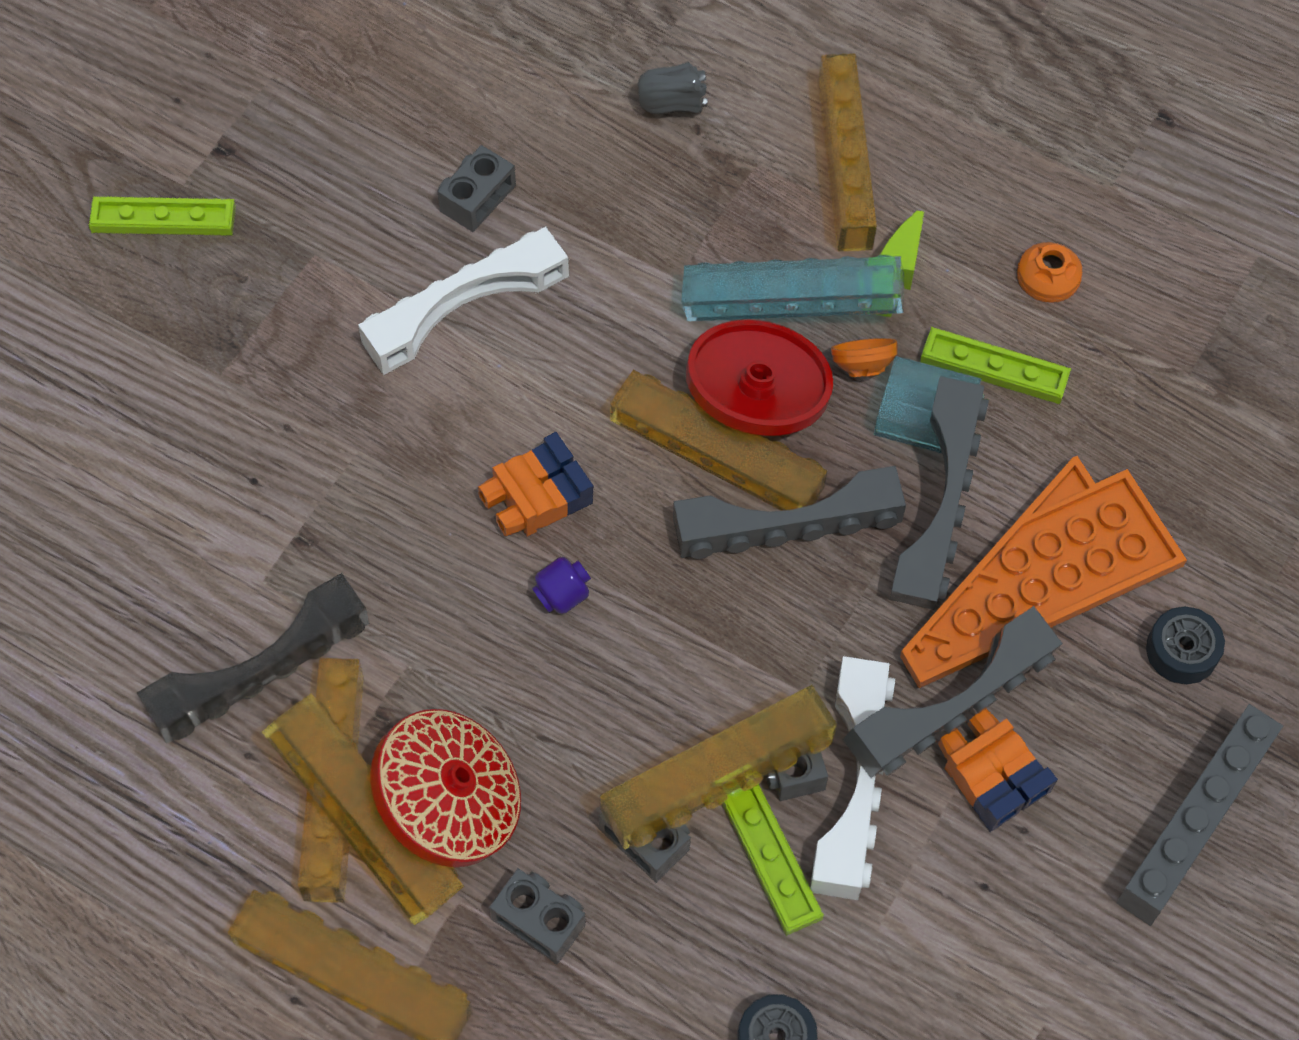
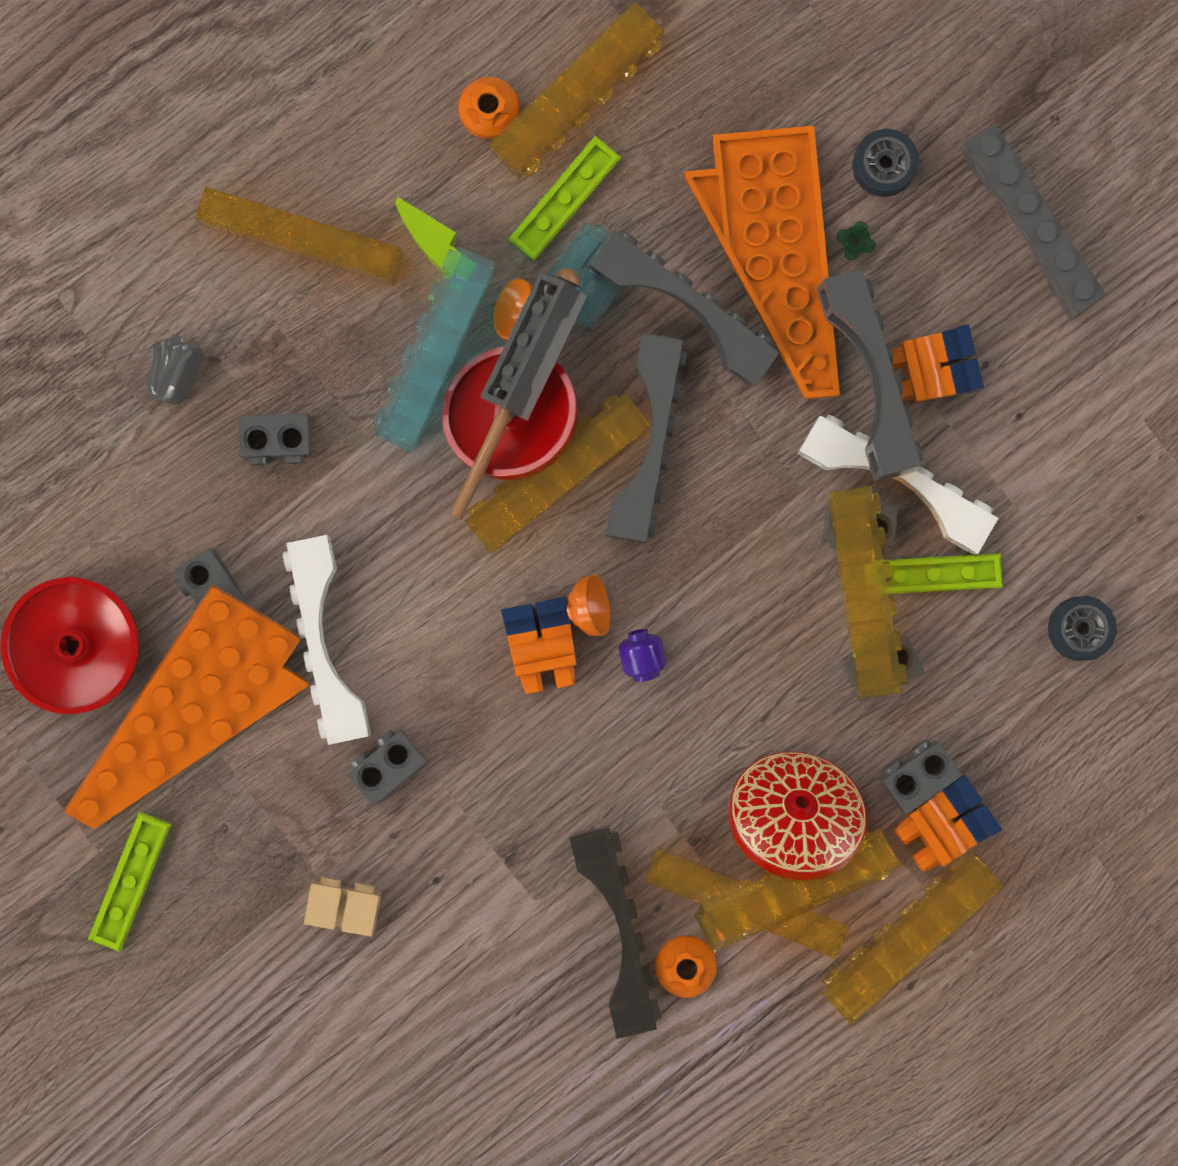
camera: 65 degrees left, 25 degrees up
(196, 398) = (343, 906): none -> tan piece
(243, 766) = (685, 948): none -> orange piece
(350, 397) = (392, 773): none -> dark grey brick
(369, 209) = (205, 691): none -> orange wing
(375, 89) = (39, 640): none -> red dish
(495, 965) = (943, 836): none -> orange hips
(600, 522) = (590, 606): none -> orange piece
(650, 191) = (276, 429): none -> dark grey brick
(814, 359) = (525, 364): none -> dark grey piece
(1095, 638) = (860, 232): none -> clear green plate
(1106, 336) = (577, 91): none -> clear yellow brick

